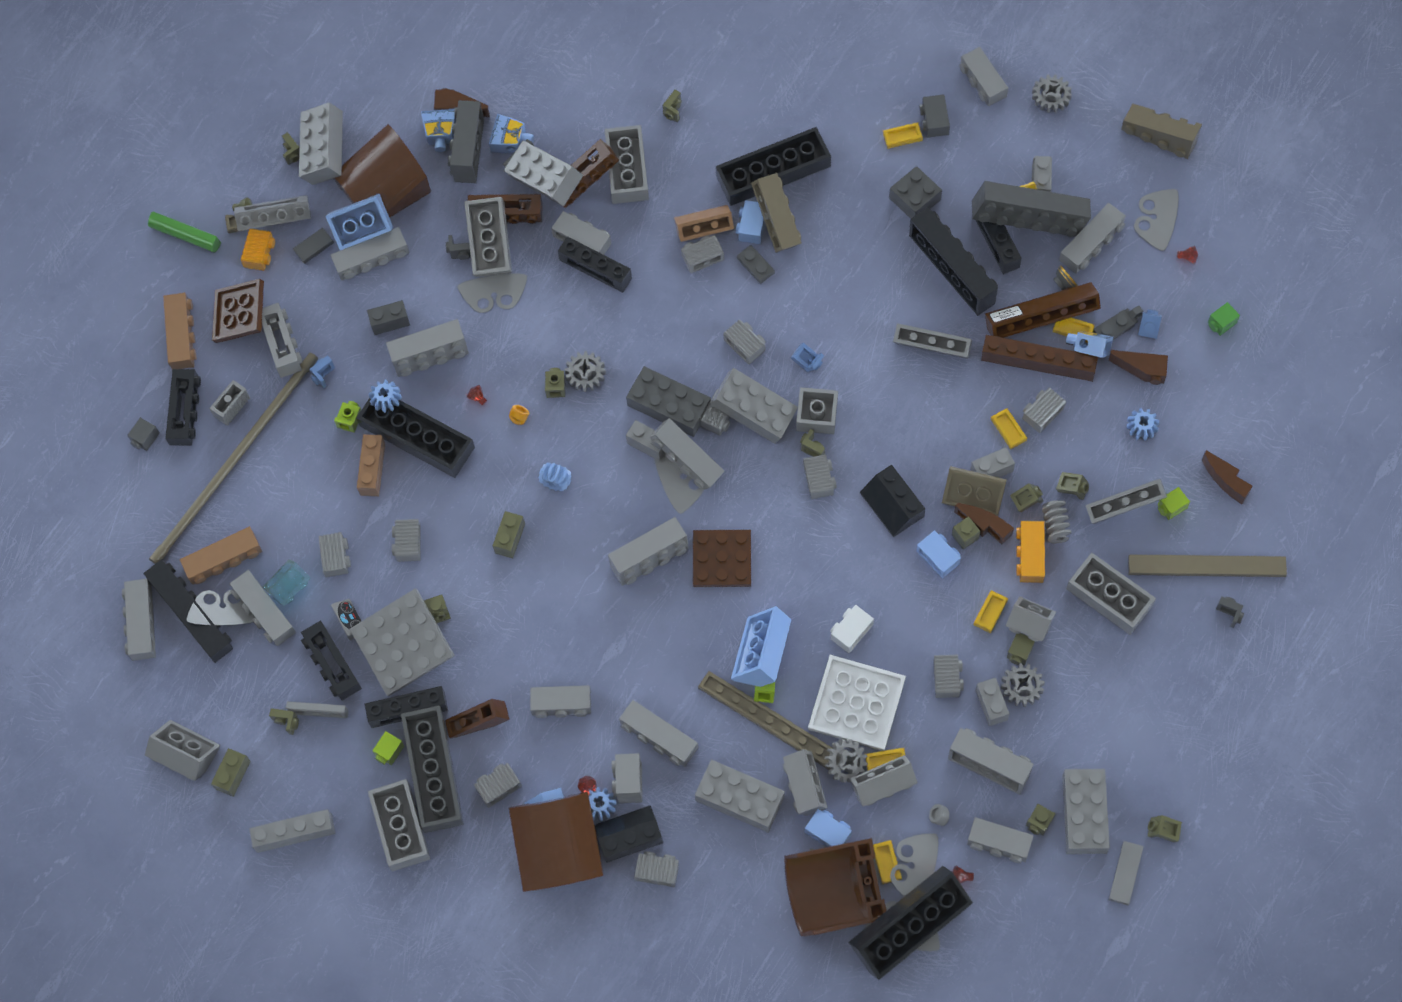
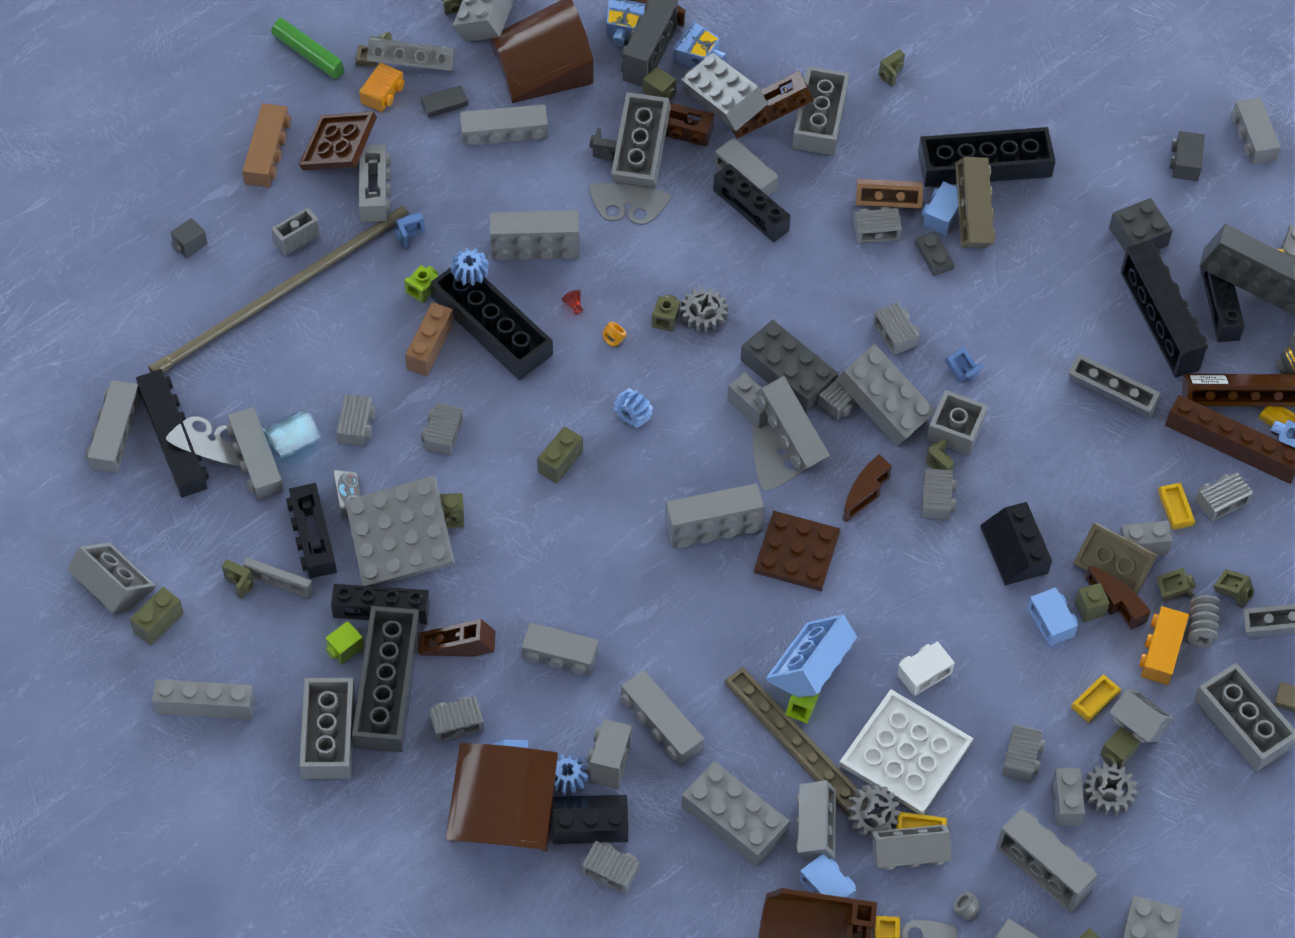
camera: 10 degrees right, 10 degrees down
(188, 382) = (226, 245): black brick -> none
(221, 555) = (228, 385): medium nougat brick -> none
(359, 222) = (503, 86): light blue brick -> none
(388, 317) = (501, 194): dark grey brick -> none
(487, 179) = (659, 84): none -> olive brick
(587, 783) = (560, 746): clear red rock -> none
(761, 487) = (867, 486): none -> reddish brown slope
(902, 135) = (1144, 167): yellow tile -> none

